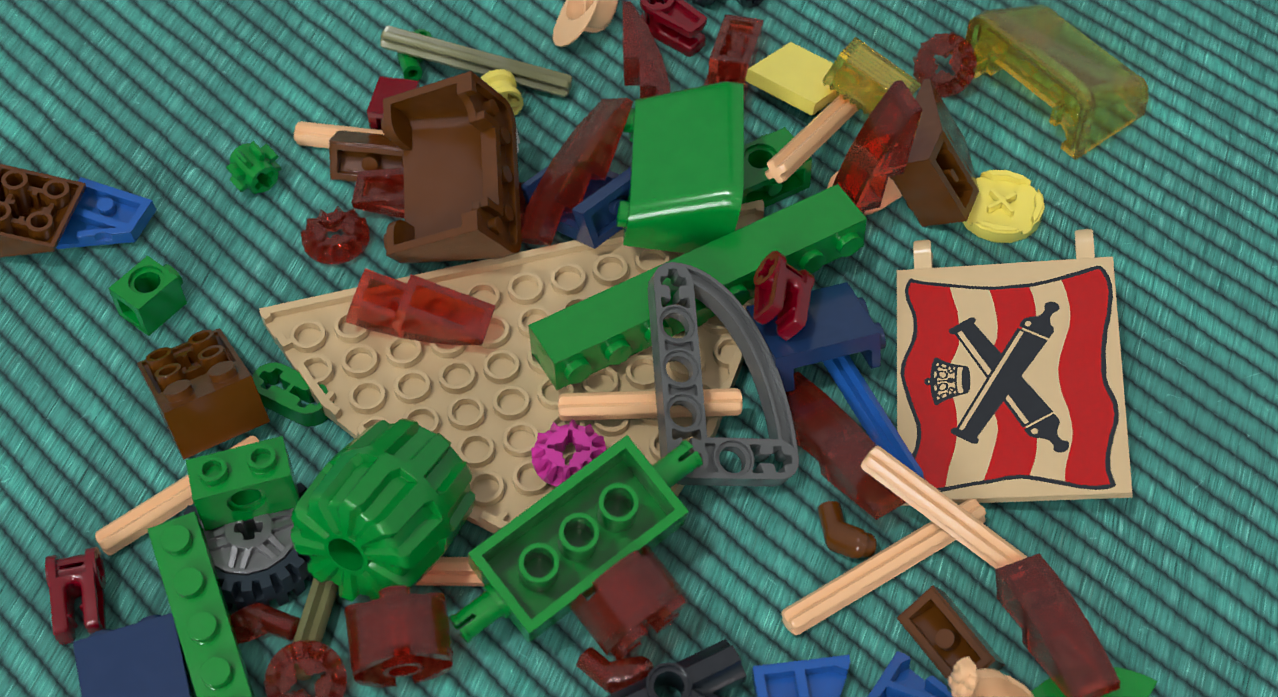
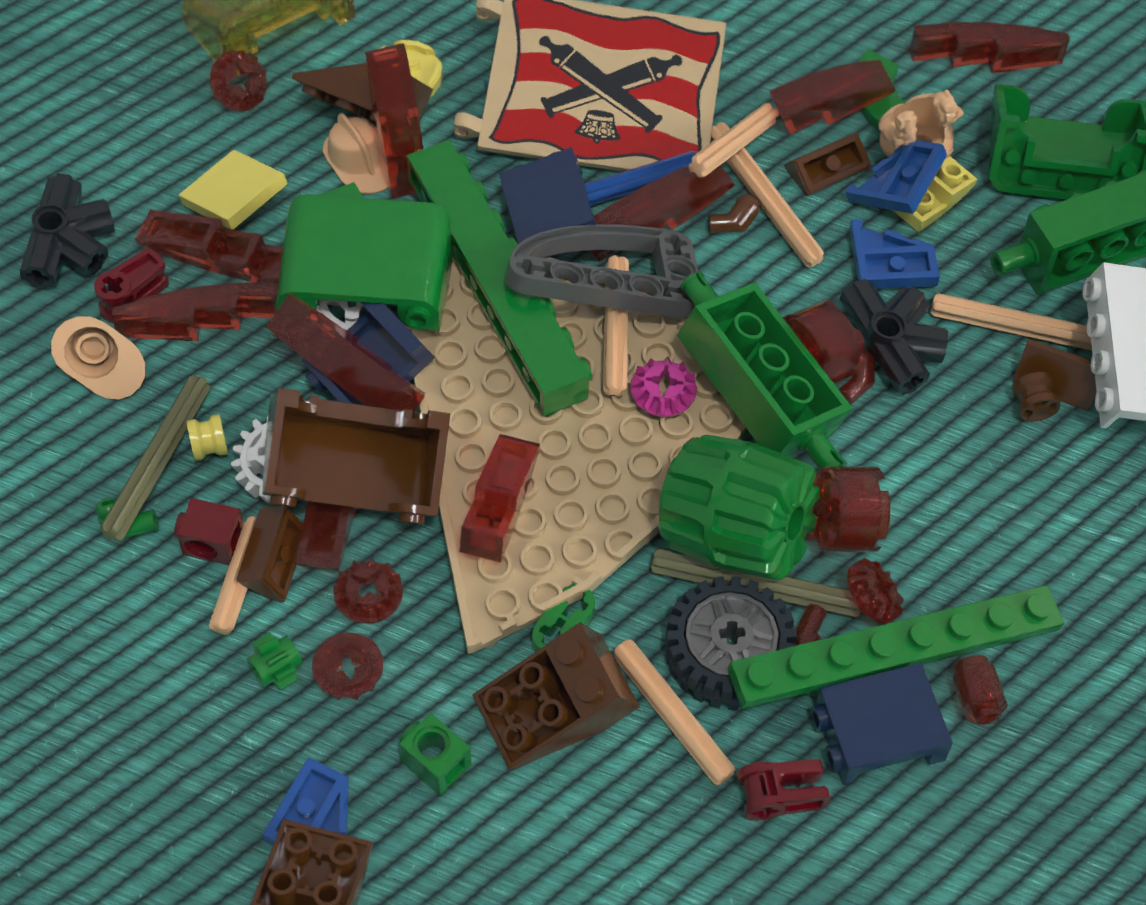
camera: 90 degrees left, 5 degrees up
(235, 226) = (360, 651): none -> clear red gear
(242, 483) = (702, 622): green brick -> none
(782, 293) = (537, 203): dark red piece -> none
(810, 139) = (334, 174): light nougat axle -> none
(865, 76) = (263, 129): clear yellow brick -> none

